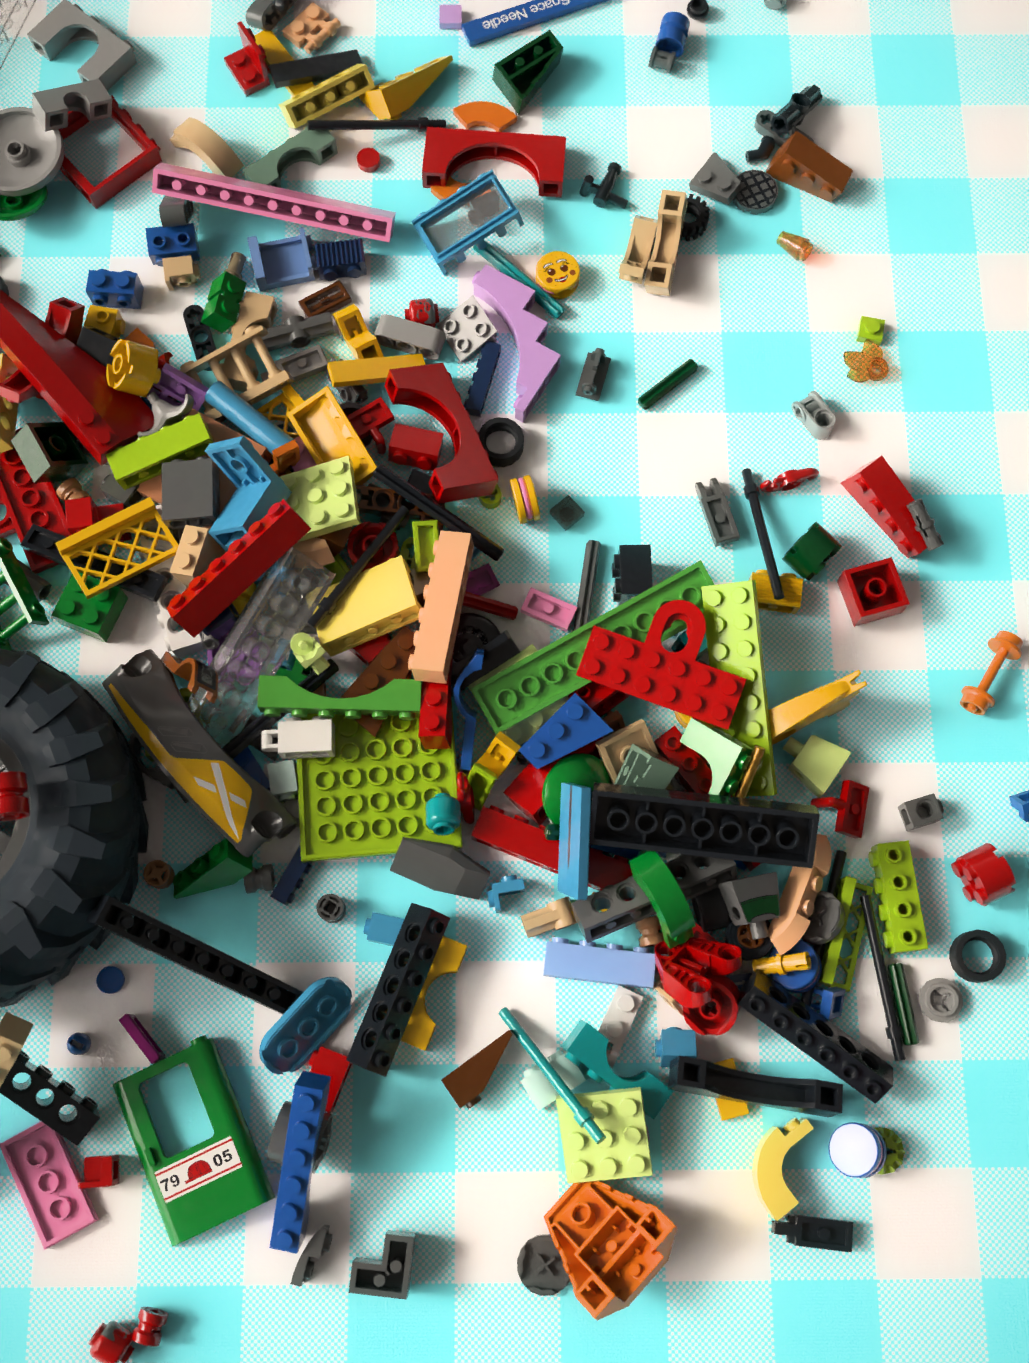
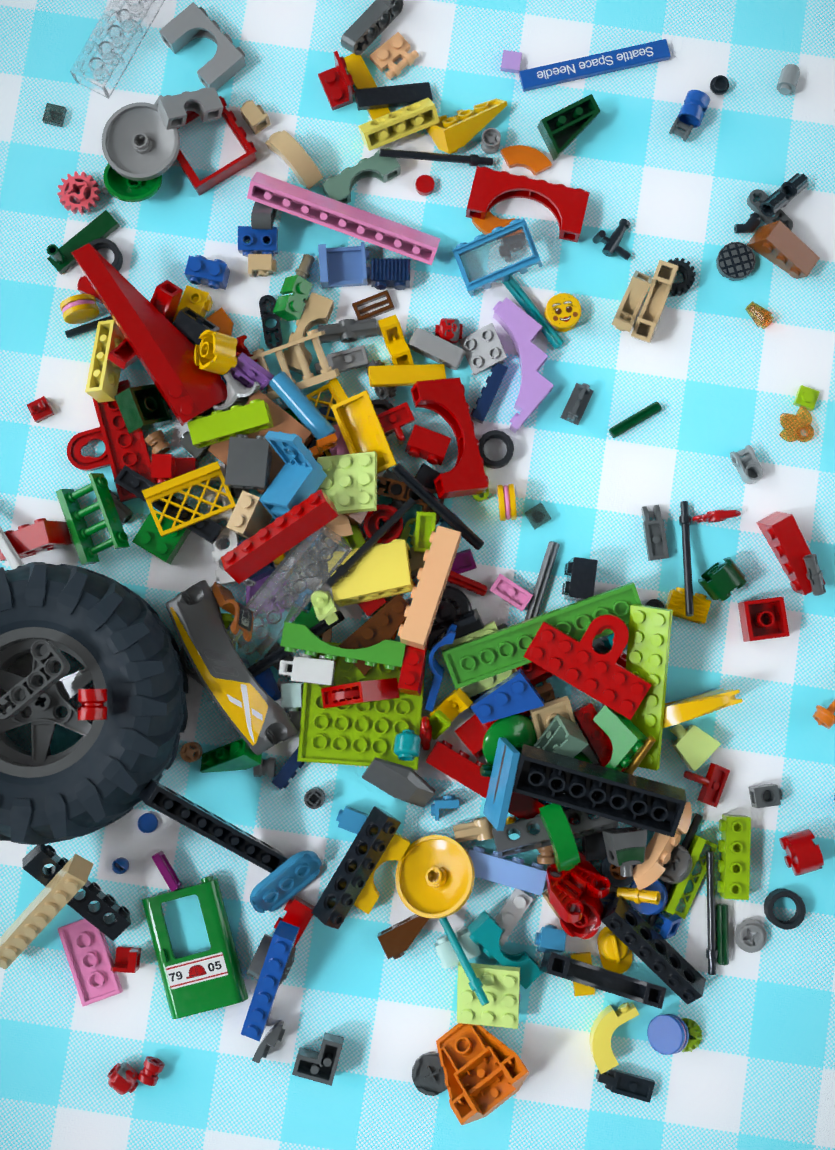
camera: 10 degrees right, 10 degrees up
(153, 112) = (254, 116): none -> tan brick
(371, 752) = (360, 692): none -> red arch
(439, 100) = (493, 137): none -> light grey wheel
(506, 985) = (435, 877): none -> yellow dish
(716, 181) = (706, 247): dark grey wing -> none
(764, 1049) = (613, 952): none -> yellow piece

